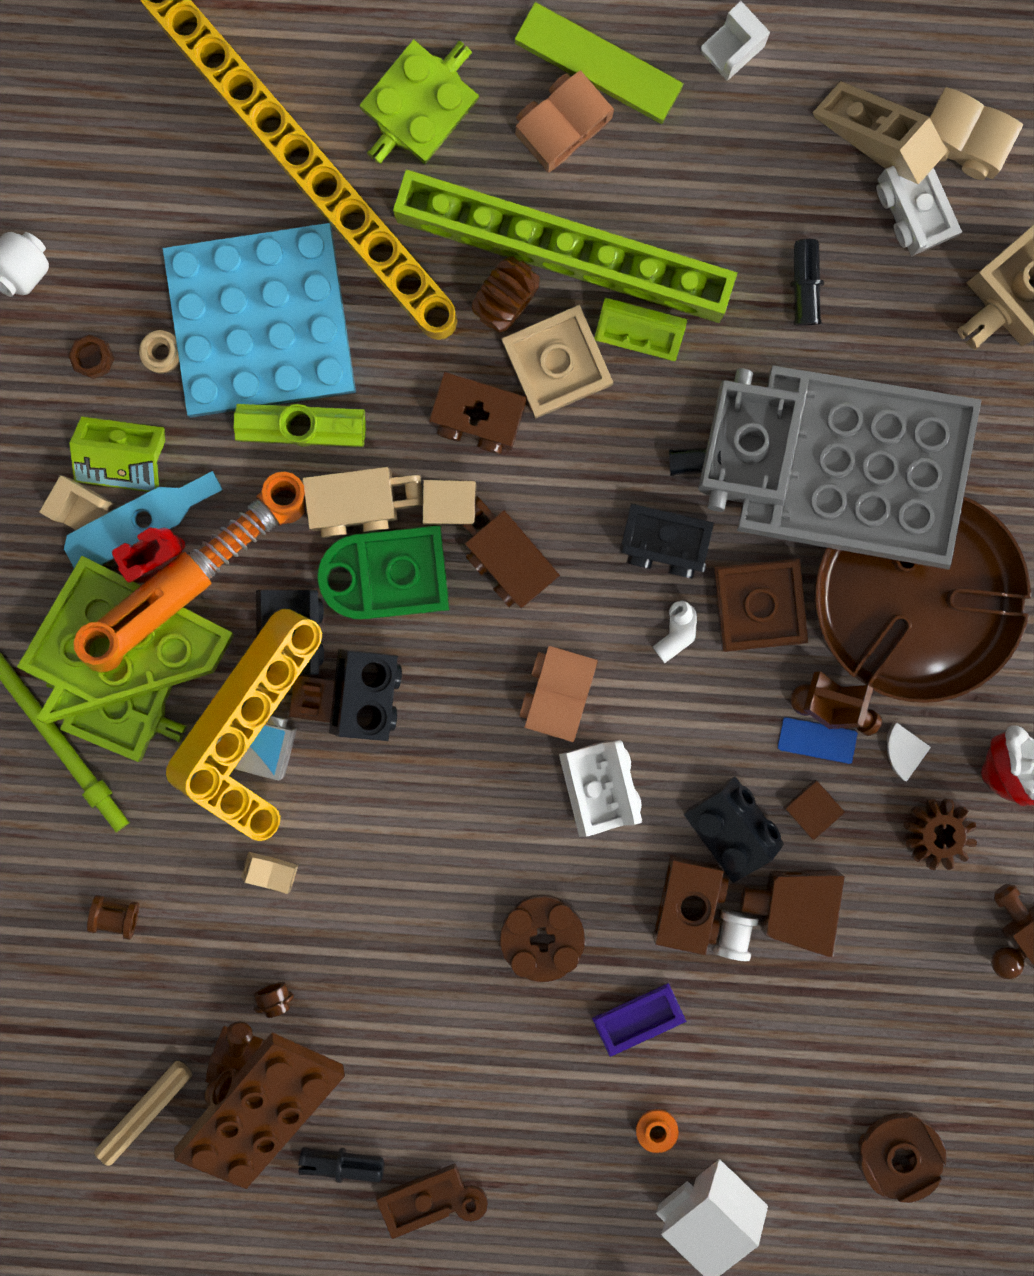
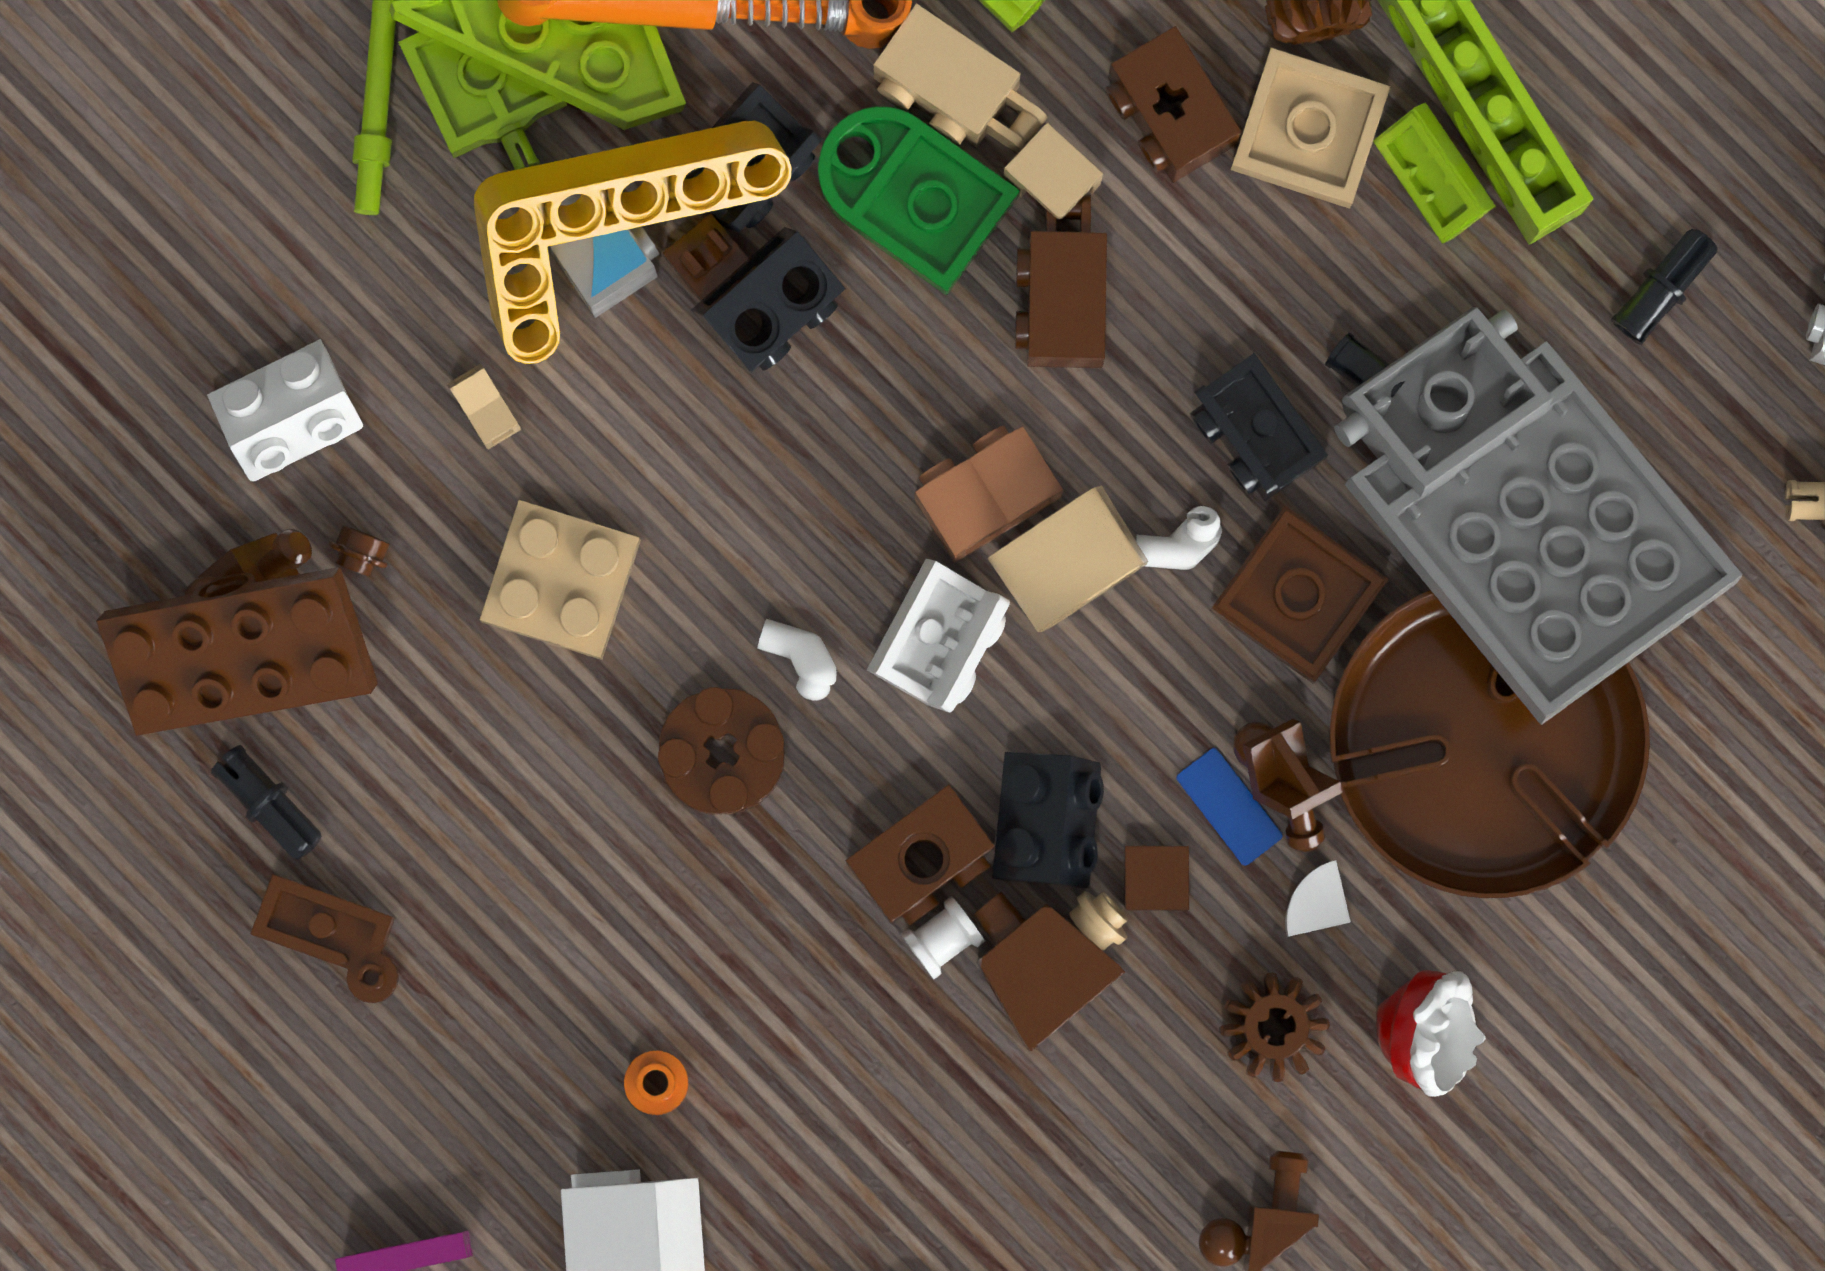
camera: 40 degrees right, 5 degrees down
(113, 917) = (266, 300): reddish brown bush -> none
(143, 1113) = (98, 548): tan axle -> none
(172, 964) = (285, 411): none -> white bracket
(385, 924) = (560, 579): none -> tan plate
(542, 853) = (807, 655): none -> white arm
(632, 692) = (1069, 559): none -> tan piece
(639, 1019) = (748, 938): dark purple tile -> none
(805, 857) = (1099, 919): none -> tan plate

